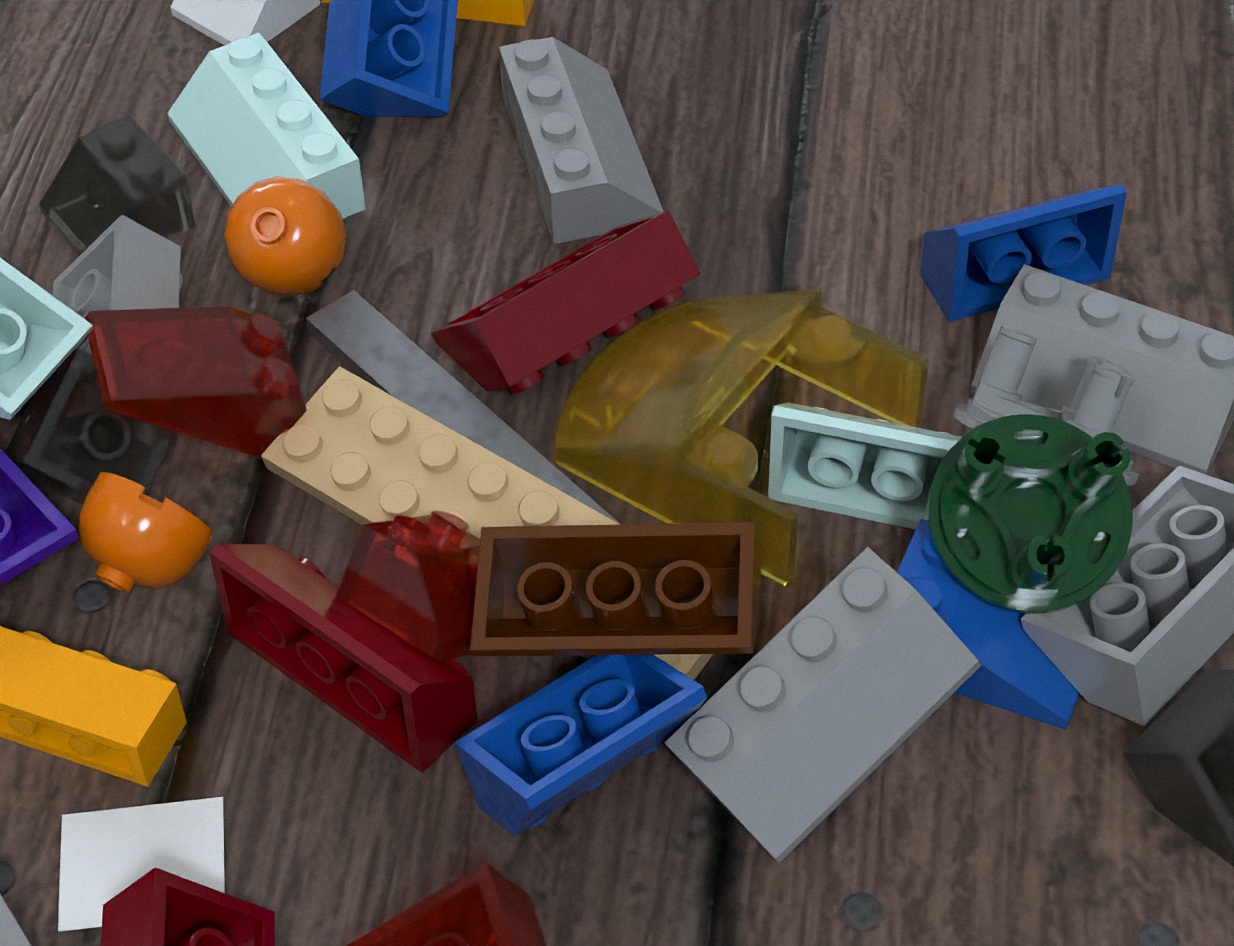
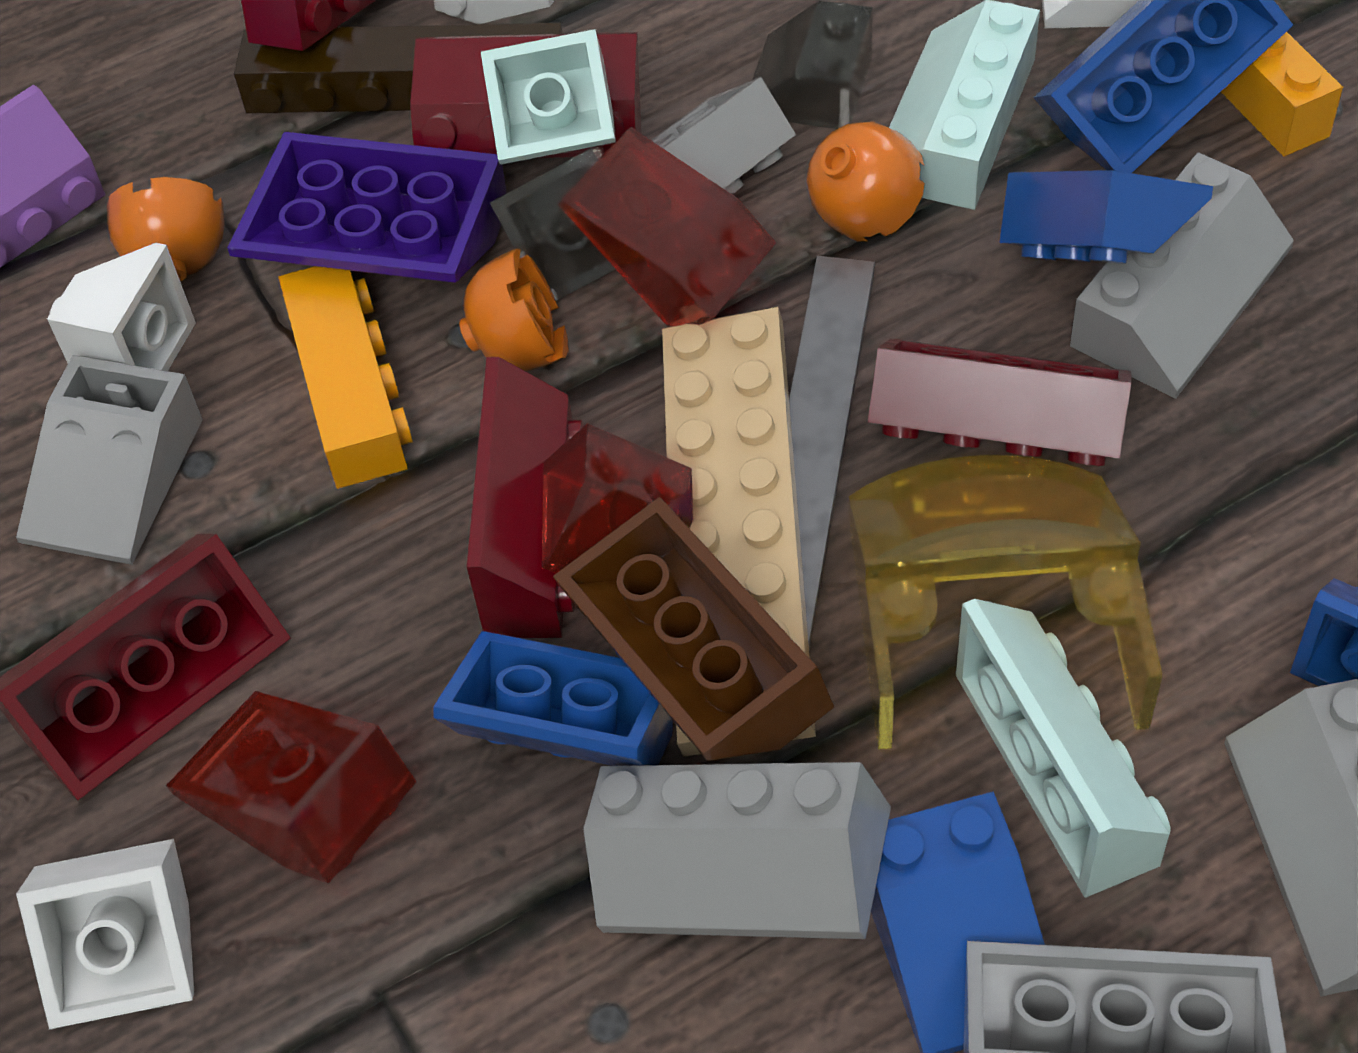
camera: 55 degrees right, 5 degrees up
(118, 846) = (277, 532): white sticker -> none
(492, 131) = (1095, 213): none -> blue slope
(1031, 512) = (1055, 866): dark green piece -> none
(1092, 408) = (1186, 830): light grey piece -> none

